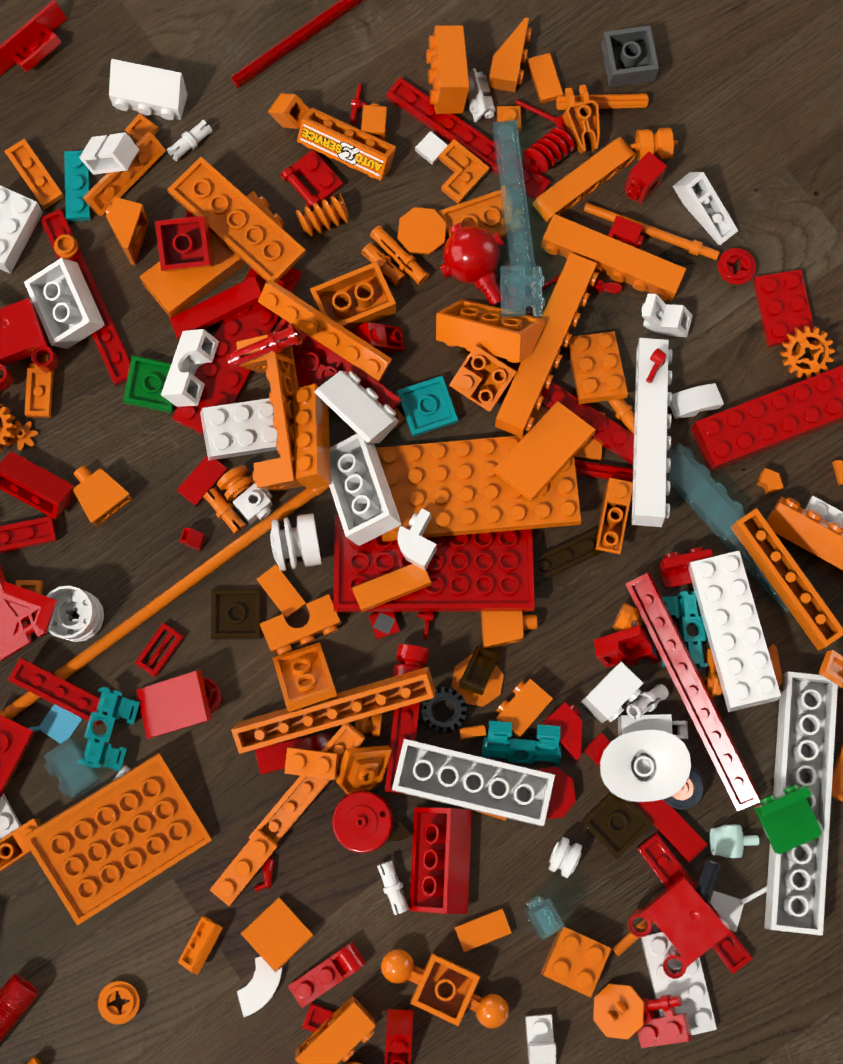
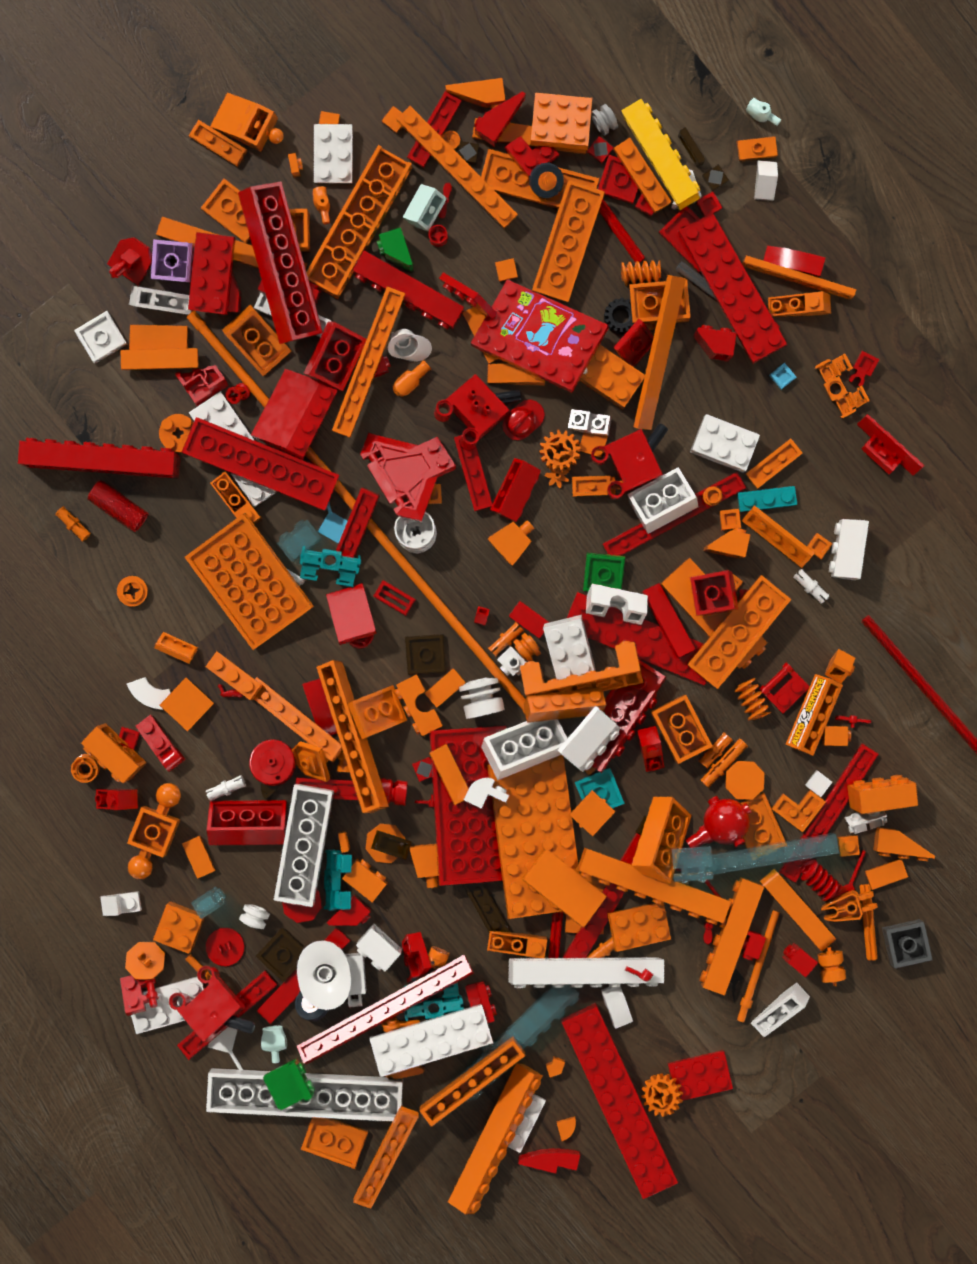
camera: 90 degrees right, 10 degrees up
(97, 229) = (730, 519): none -> orange plate
(109, 153) = (791, 524): white piece -> none
(274, 340) = (631, 673): red pin -> none
(311, 763) = (311, 722): orange plate -> none
(324, 330) = (651, 709): orange plate -> none
(452, 415) = (592, 813): none -> orange piece
(455, 721) = (352, 828): black tyre -> none
(482, 378) = (621, 835): orange slope -> none
(603, 901) = (225, 946): none -> red piece
(647, 701) = (374, 975): white pin -> none
(665, 318) = (683, 980): white brick -> none
(746, 263) = (736, 1044): red gear -> none

